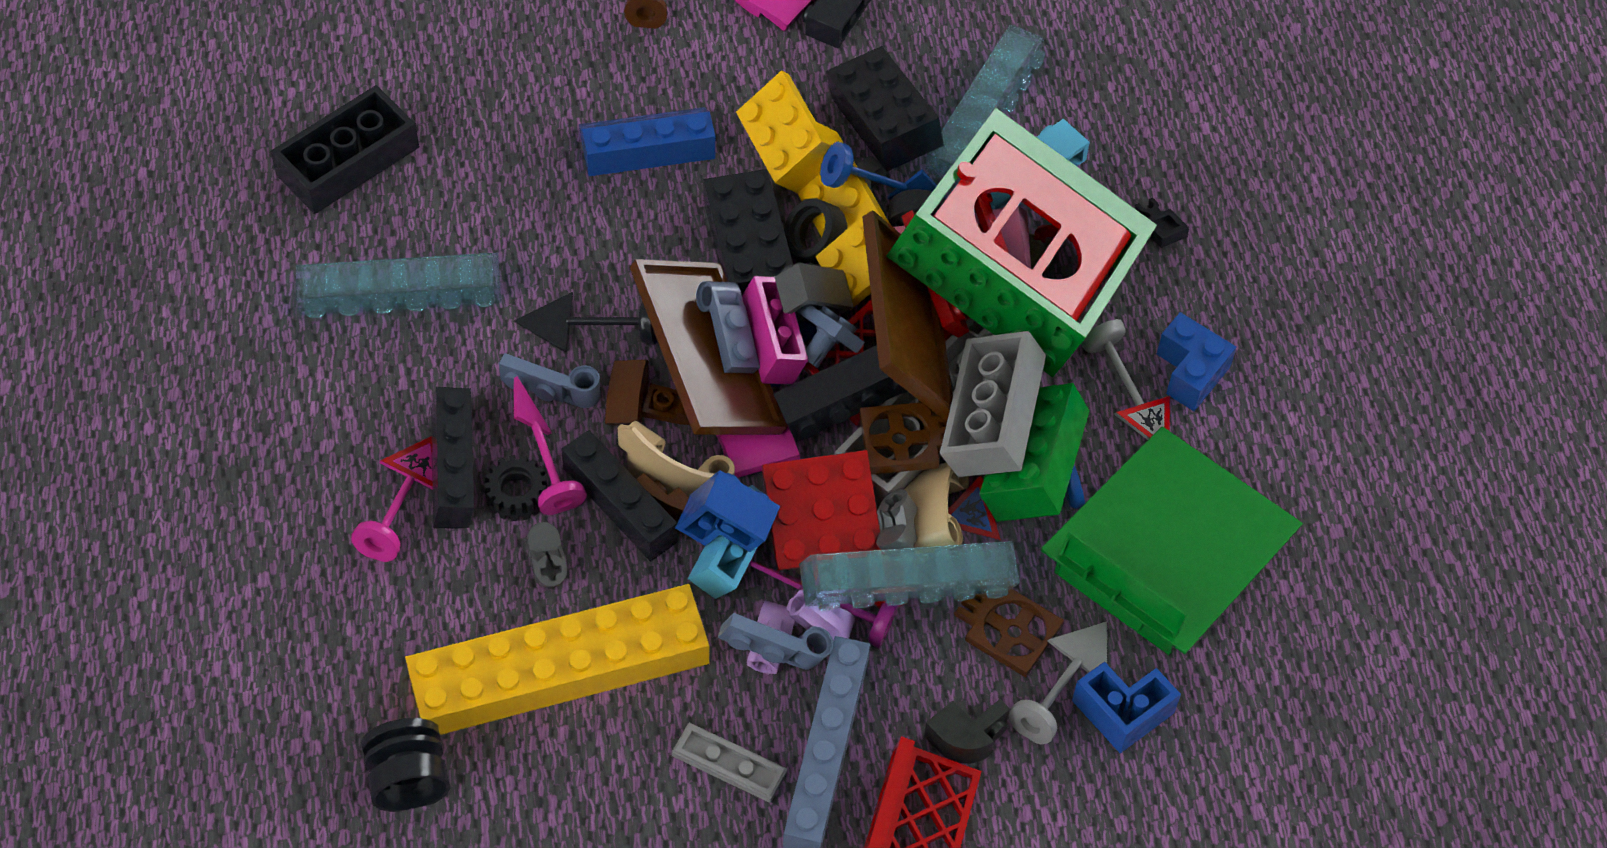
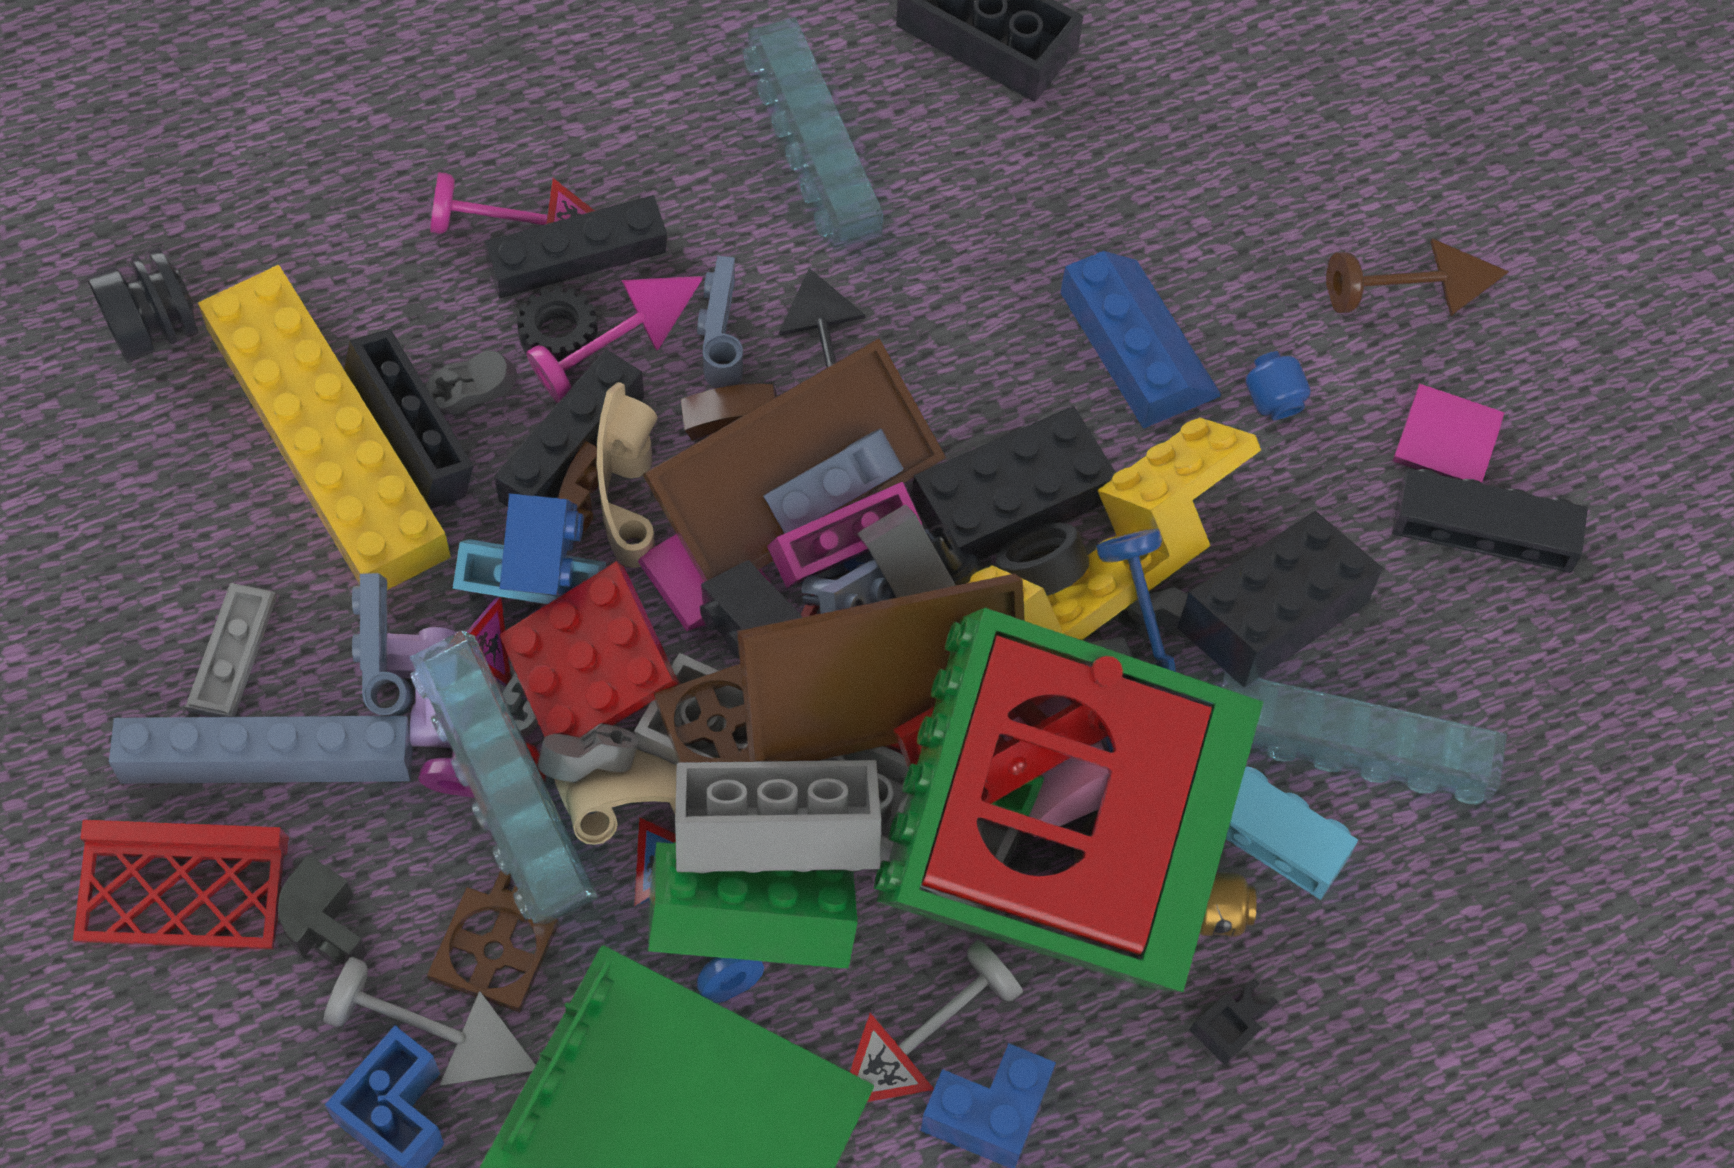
camera: 75 degrees right, 5 degrees up
(570, 591) = (409, 417): none -> black brick
(713, 70) = (1278, 385): none -> blue head

